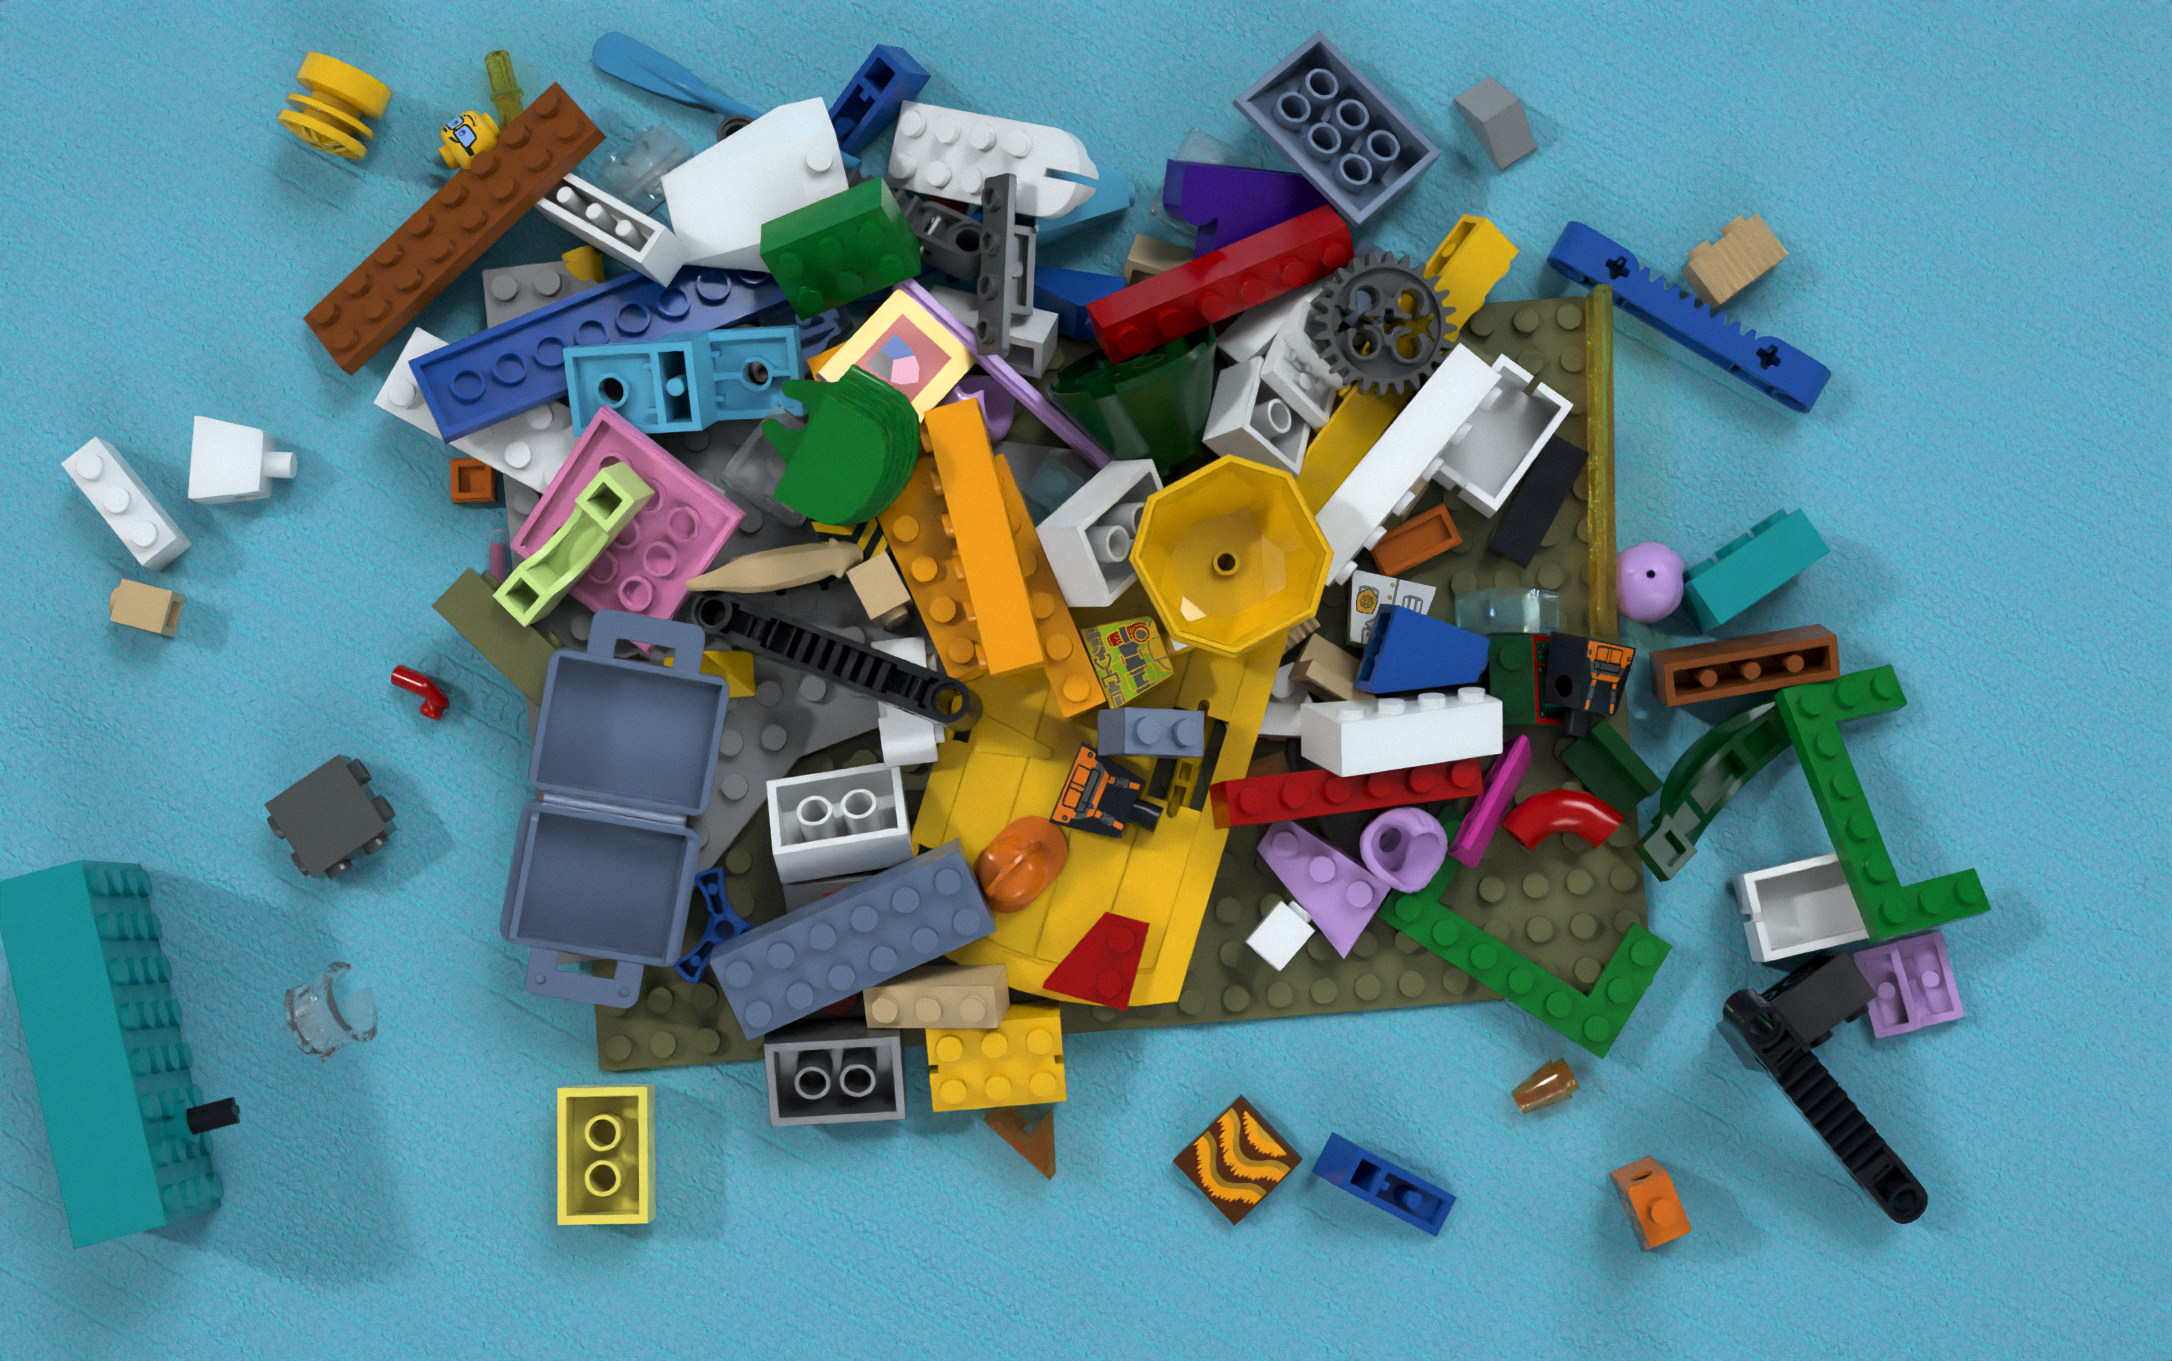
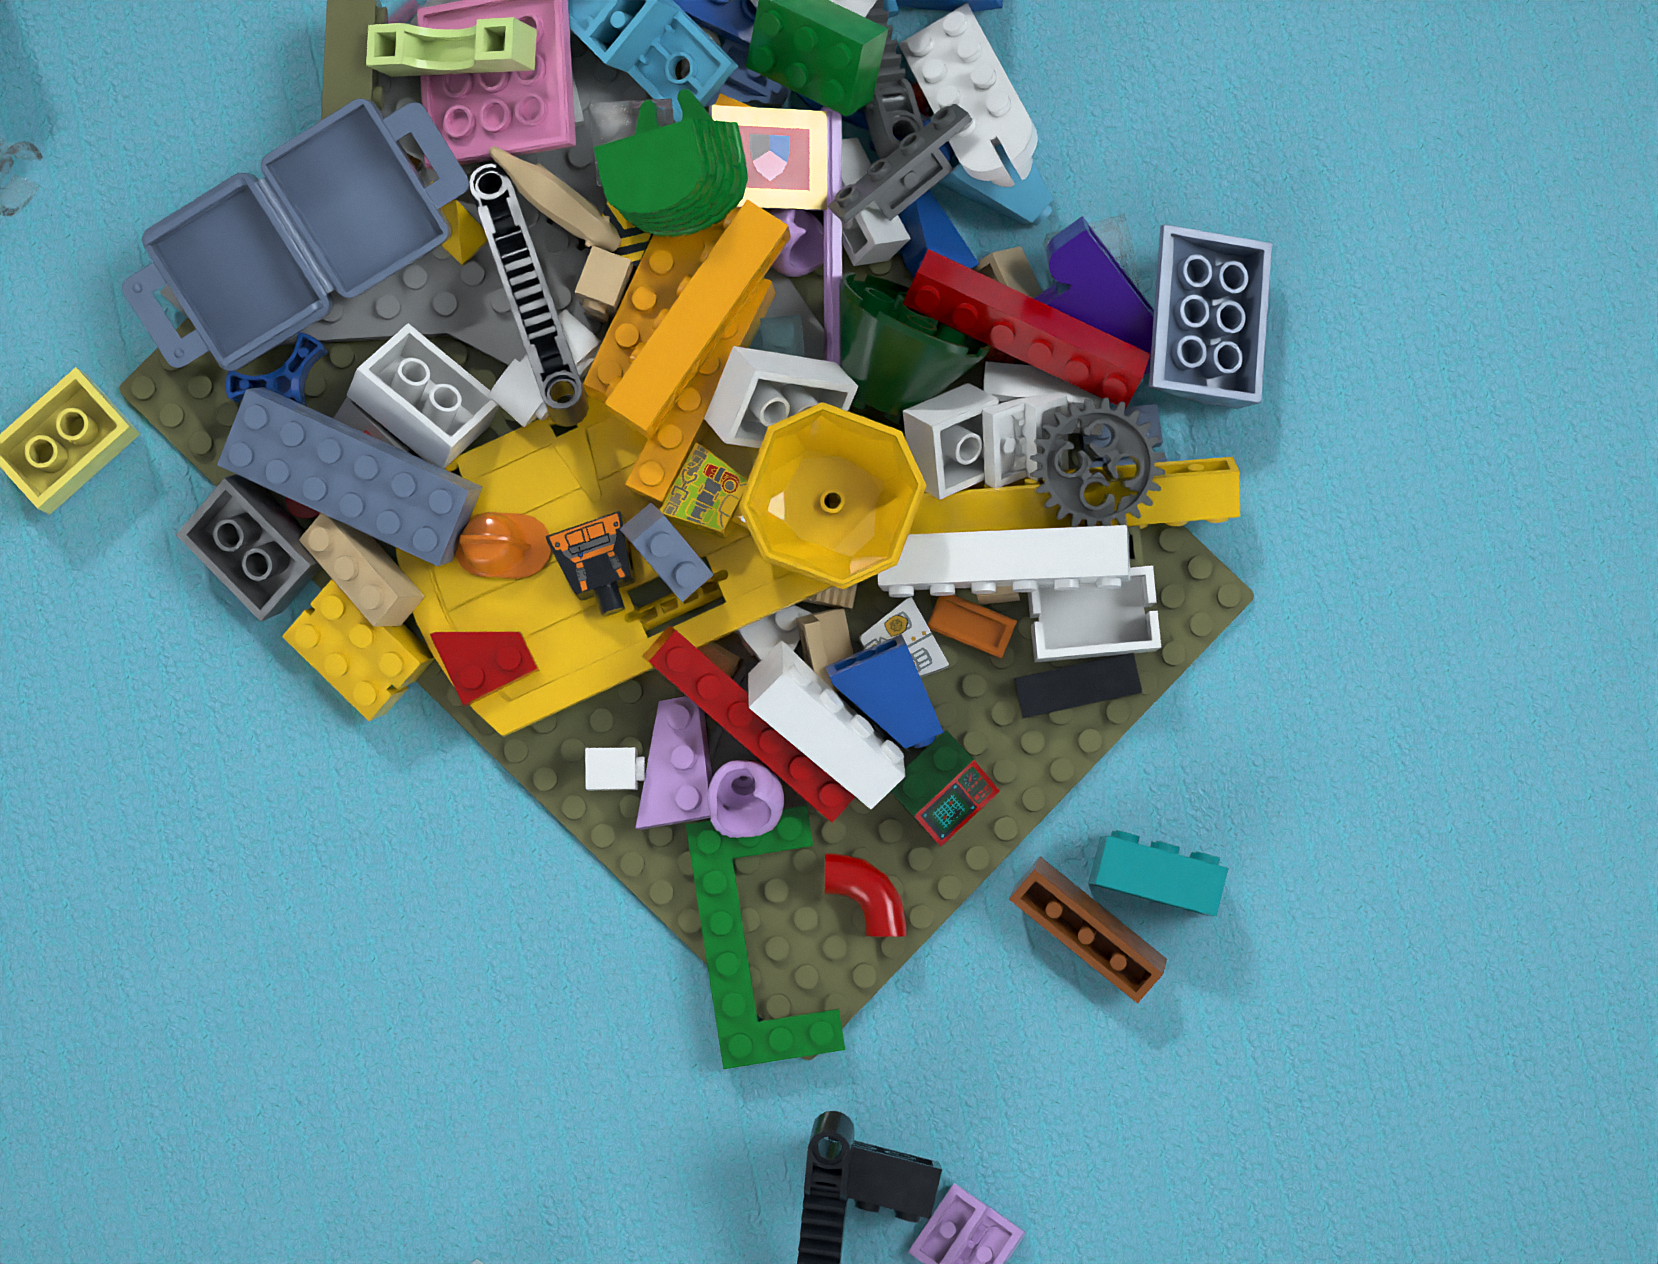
camera: 50 degrees right, 0 degrees up
(332, 818) = (129, 56): dark grey brick -> none
(422, 686) = (274, 39): red arm -> none
(1035, 1146) = (320, 729): clear orange slope -> none
(1237, 1159) = (434, 877): slope -> none
(1383, 1184) = (504, 993): blue slope -> none
(1489, 808) = (835, 836): dark pink slope -> none
(1497, 122) = (1323, 426): light grey slope -> none
(1508, 611) = (977, 731): clear light blue brick -> none
(1546, 1086) = (672, 1048): clear orange cone -> none
(1585, 678) = (978, 824): black torso -> none
(1601, 462) = (1143, 704): clear yellow tile -> none
(1610, 768) = (931, 898): dark green panel -> none
(1647, 598) = (1086, 826): lavender piece -> none
(1650, 1203) = (651, 1189): orange torso -> none
(1706, 780) = (996, 974): dark green piece -> none
(1734, 261) = (1372, 676): tan brick -> none
(1790, 375) = (1280, 568): blue gear -> none
(1797, 907) = (961, 1122): white piece -> none
(1885, 907) = (997, 1171): green plate -> none

